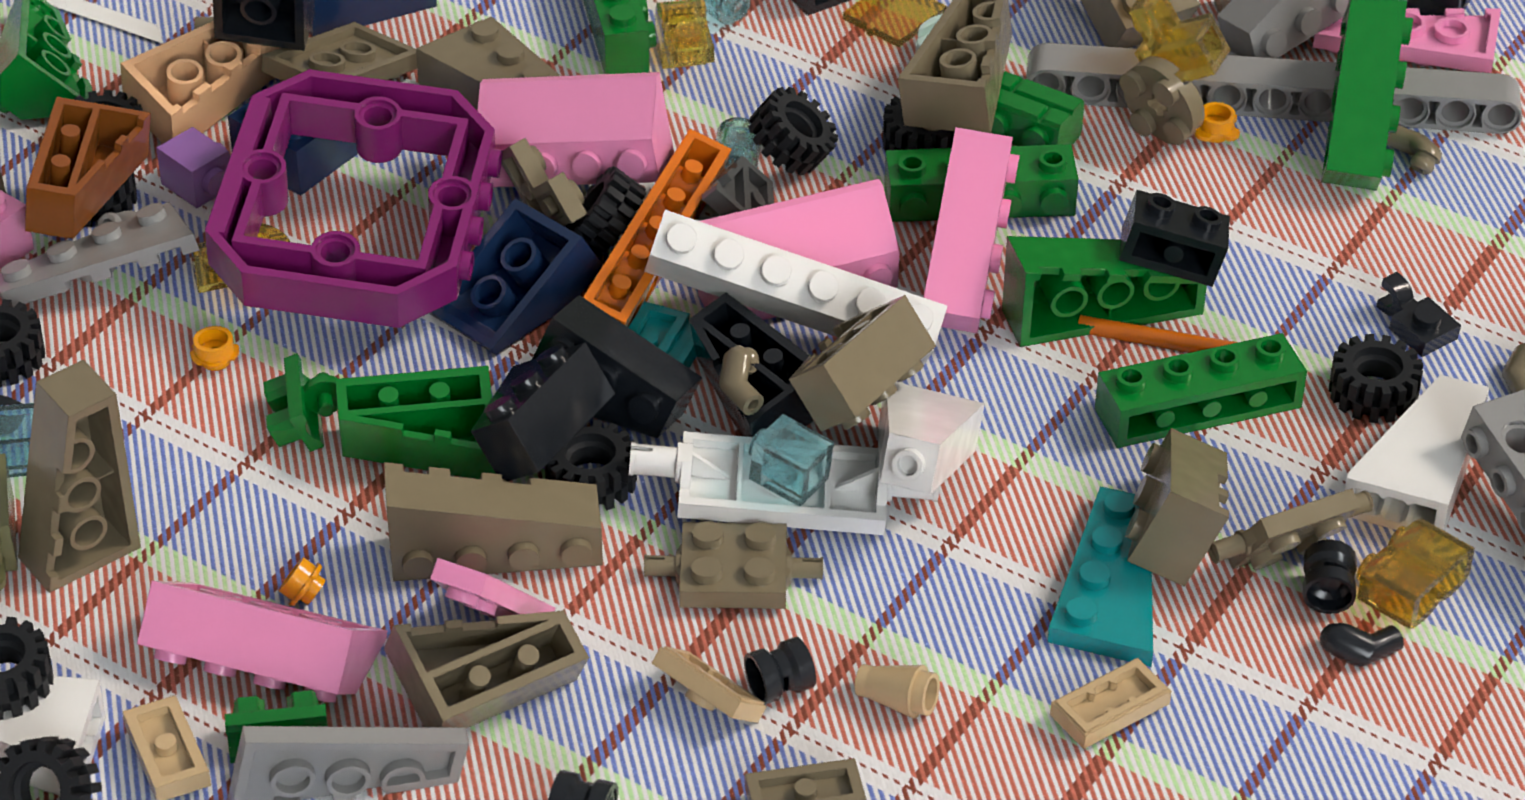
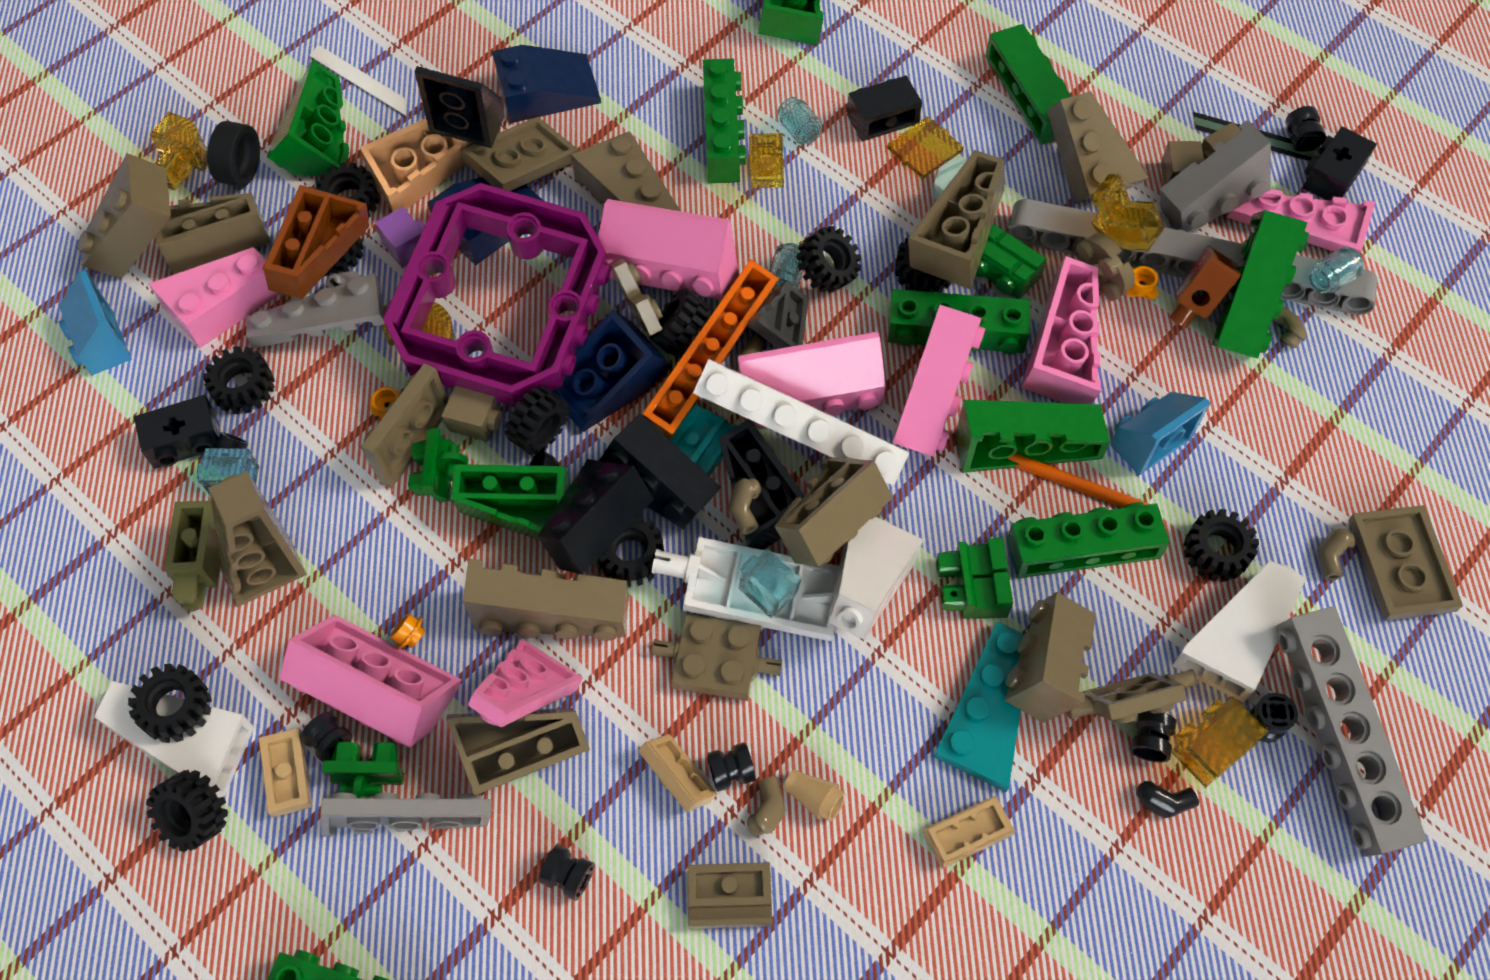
camera: 10 degrees right, 20 degrees up
(211, 698) = (324, 734): none -> black wheel
(253, 354) = (404, 423): none -> dark tan plate
(339, 342) = (472, 413): none -> dark tan brick
(433, 332) = (537, 420): none -> black tyre
(842, 712) = (770, 811): none -> dark tan arm
(1068, 444) = (981, 580): none -> green hips
(1124, 160) = (1066, 346): none -> bright pink wedge
(1174, 237) = (1090, 411): black brick -> none
(1271, 265) = (1158, 429): none -> dark azure slope
(1301, 89) = (1210, 273): none -> dark orange torso
(1418, 323) = (1261, 493): black plate -> none
(1461, 71) = (1336, 270): none -> clear light blue brick
(1486, 532) = (1282, 707): none -> black wheel

